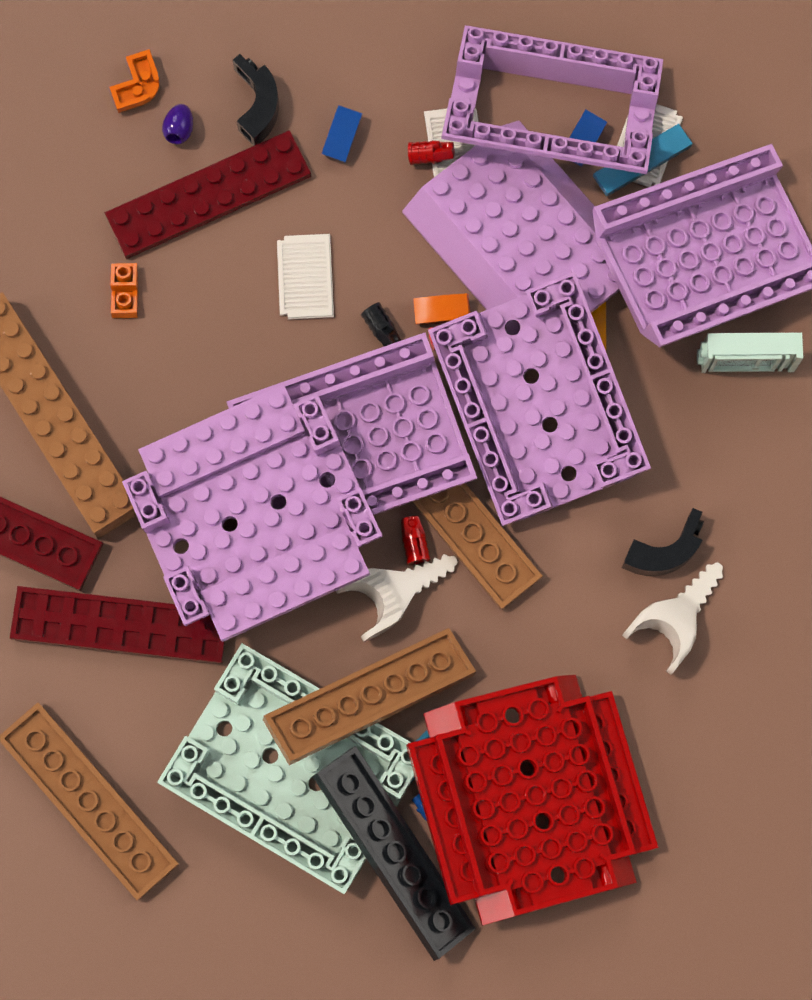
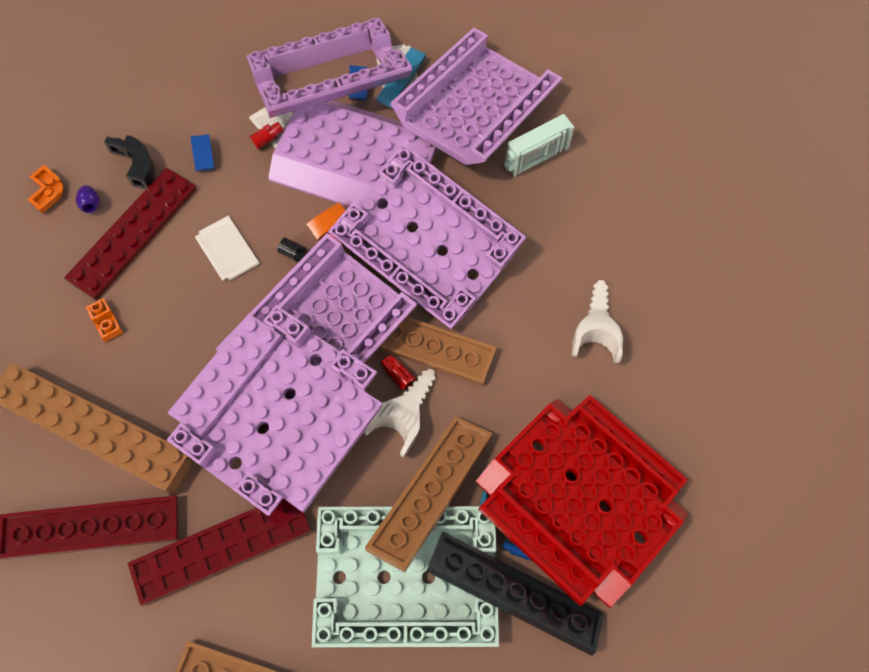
camera: 30 degrees left, 10 degrees down
(658, 561) = (560, 299): black arch -> none

